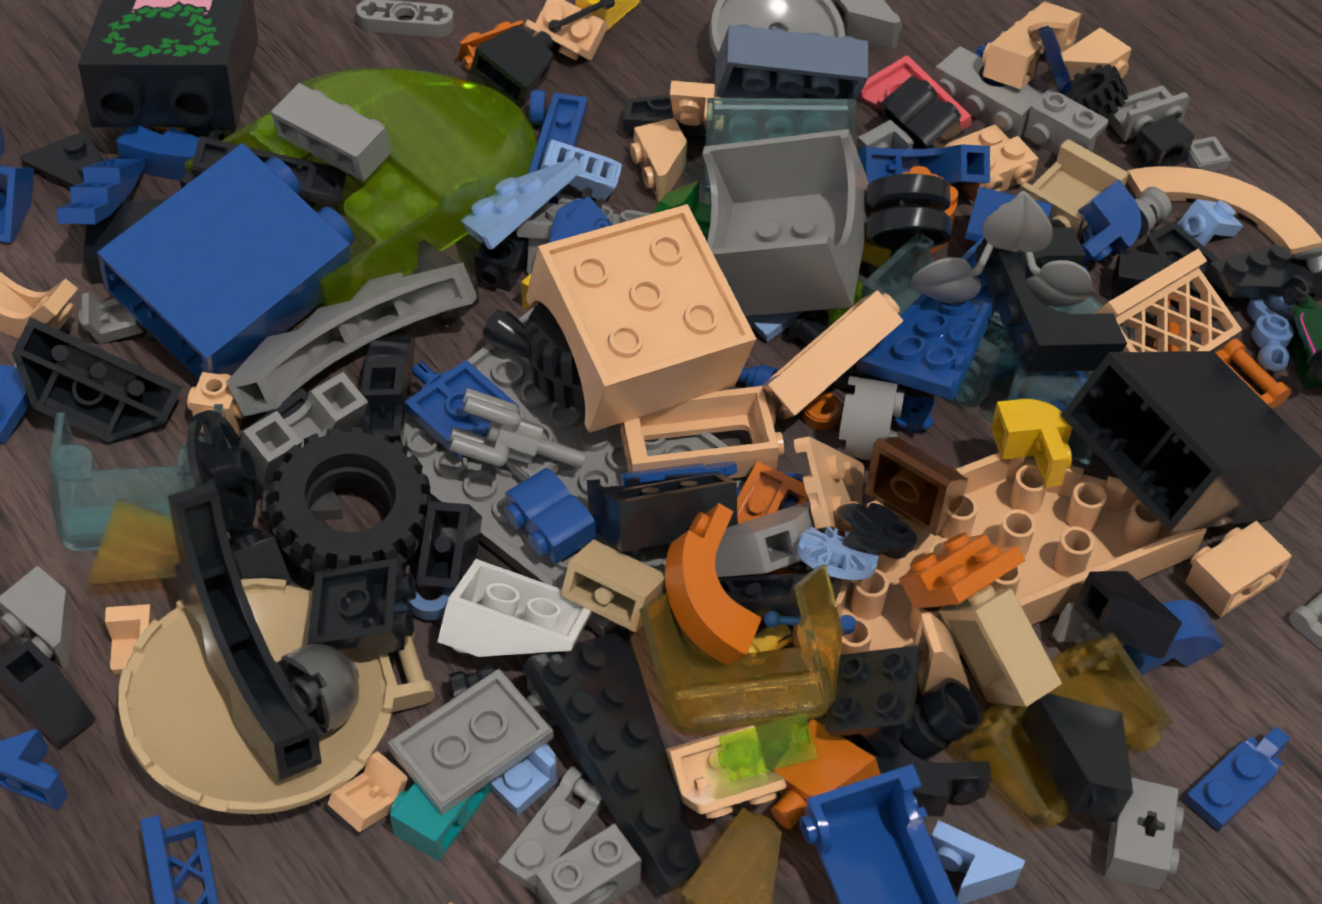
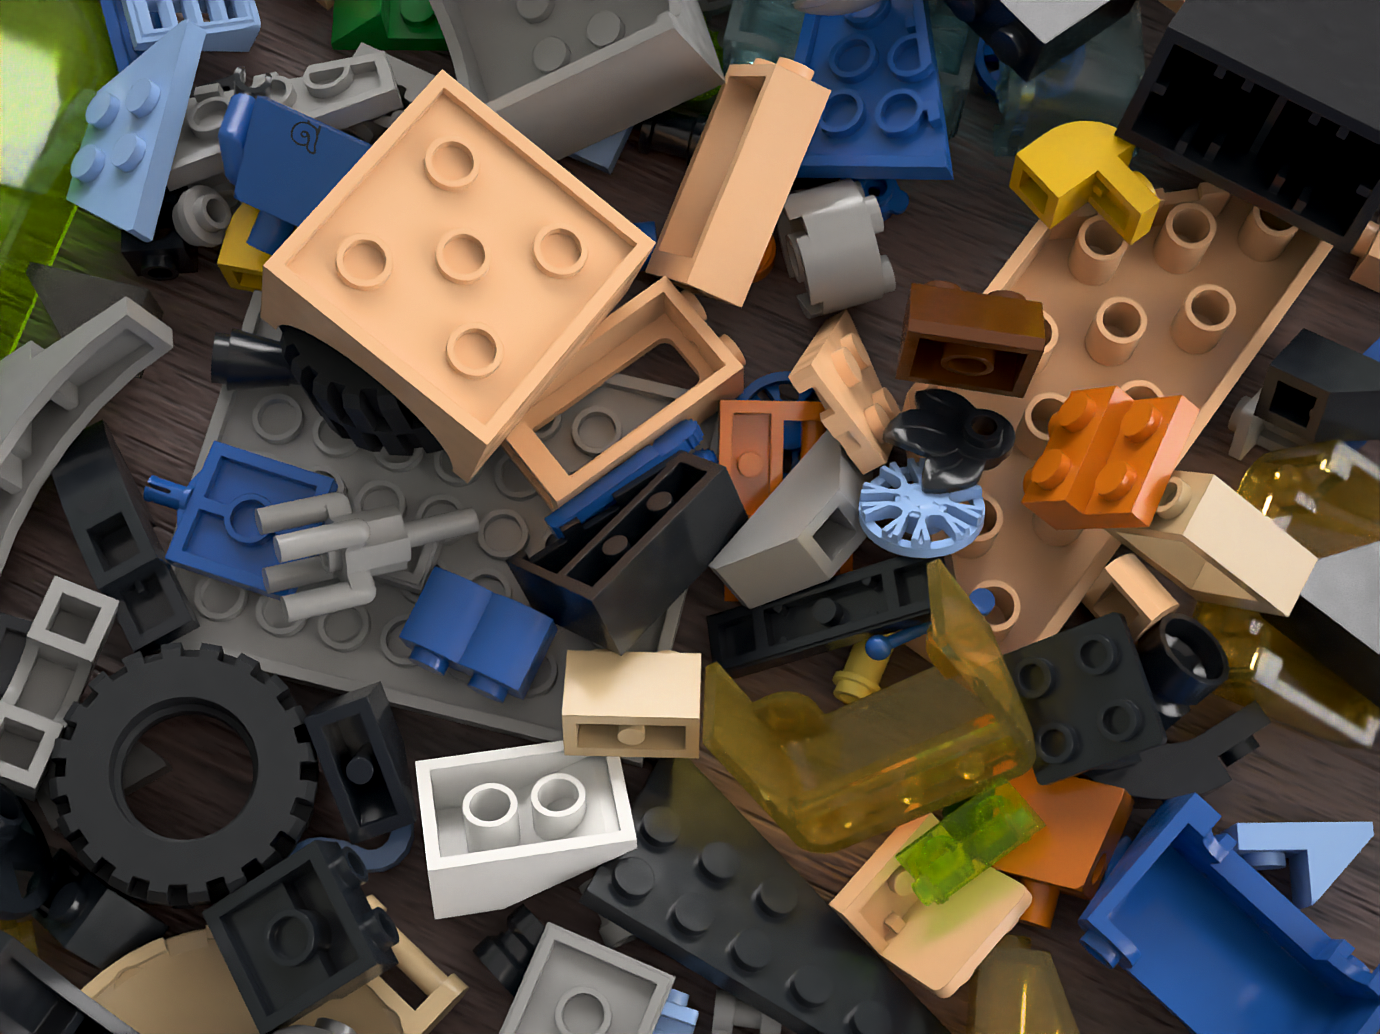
camera: 25 degrees left, 20 degrees up
(523, 256) = (201, 216): none -> light grey plate
(697, 597) = (755, 660): orange arch -> none

